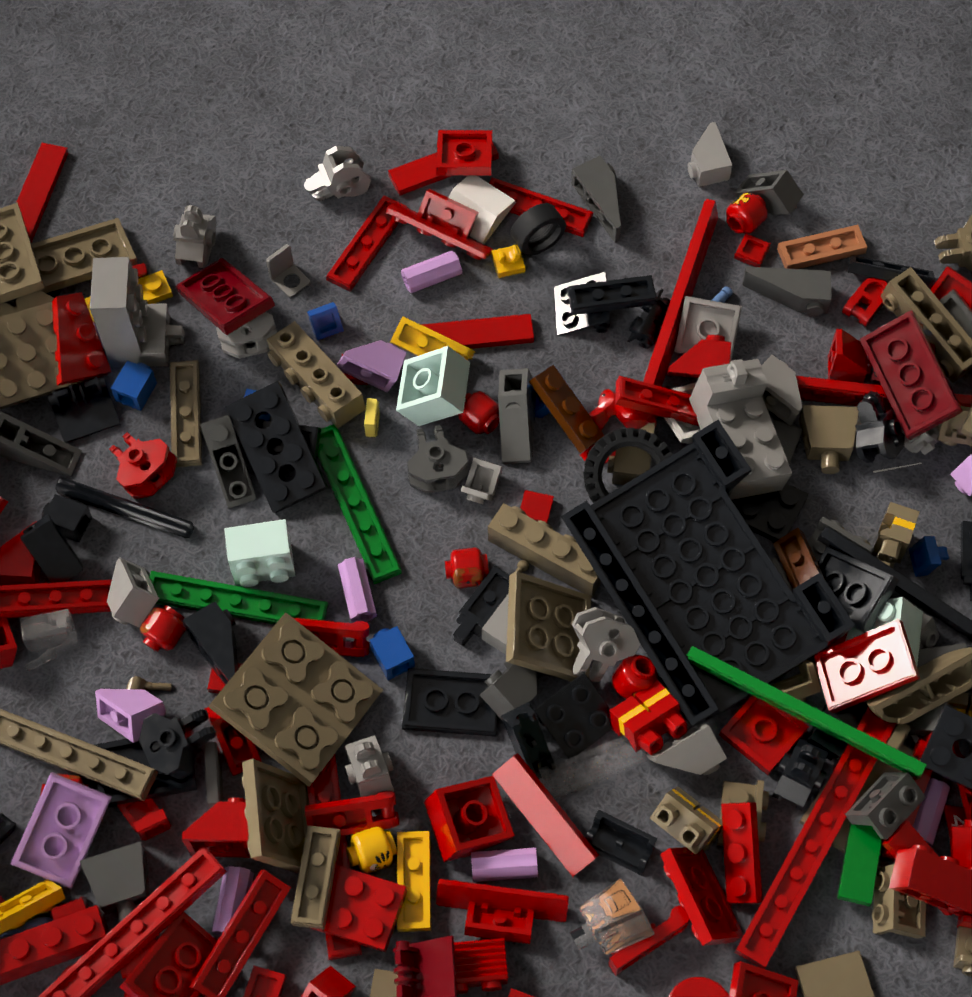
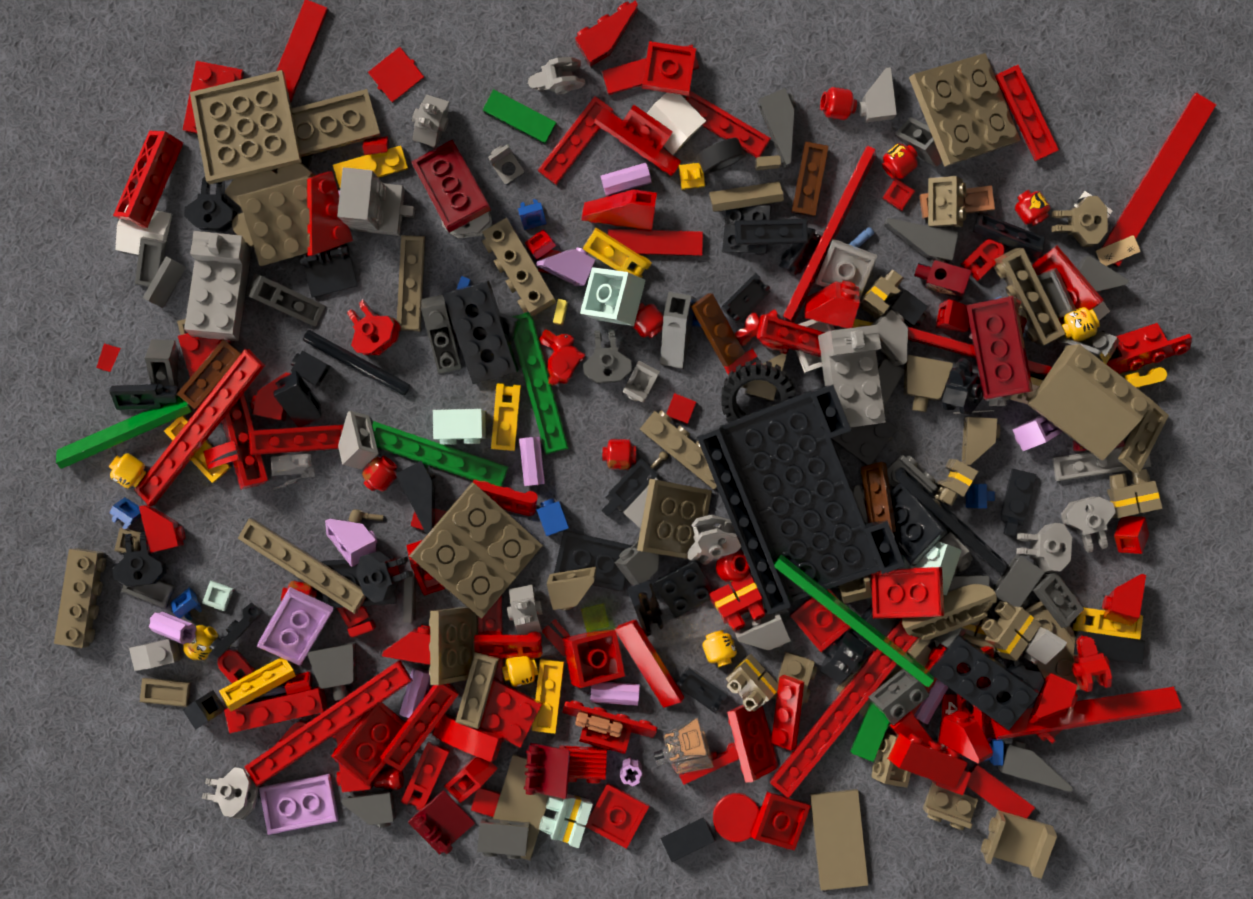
camera: 10 degrees right, 25 degrees up
(134, 385) = (371, 254): blue brick -> none
(151, 204) = (396, 74): none -> red piece
(298, 227) = (519, 116): none -> green tile
(310, 947) = (468, 739): none -> red slope
(318, 546) = (505, 418): none -> yellow plate
(338, 347) = (540, 244): none -> red tile
(382, 469) = (564, 356): none -> red animal
(385, 137) = (600, 40): none -> red slope
(412, 801) = (554, 633): none -> red sticker
(424, 733) = (569, 587): none -> dark tan slope
(440, 297) = (627, 209): none -> red slope
(462, 769) = (595, 617): none -> clear neon green tile
(488, 904) = (598, 724): none -> nougat axle
(542, 949) = (626, 777): none -> lavender axle
(575, 271) = (746, 196): none -> dark tan tile
(594, 234) = (767, 162): none -> dark tan tile
(595, 374) = (746, 298): none -> black hinge
(635, 785) = (719, 648): none -> yellow head
(646, 243) = (809, 179): none -> reddish brown plate
(663, 167) = (838, 103): none -> red head
(757, 339) = (882, 289): none -> dark tan hips
(795, 356) = (909, 308): none -> black brick
(808, 150) = (964, 109): none -> dark tan piece
(809, 241) = (946, 201): none -> dark tan bracket
(825, 317) = (953, 284): none -> dark red torso
(879, 153) = (1026, 113): none -> red plate
(910, 240) = (1032, 207): none -> red head
(911, 483) = (978, 437): none -> dark tan slope

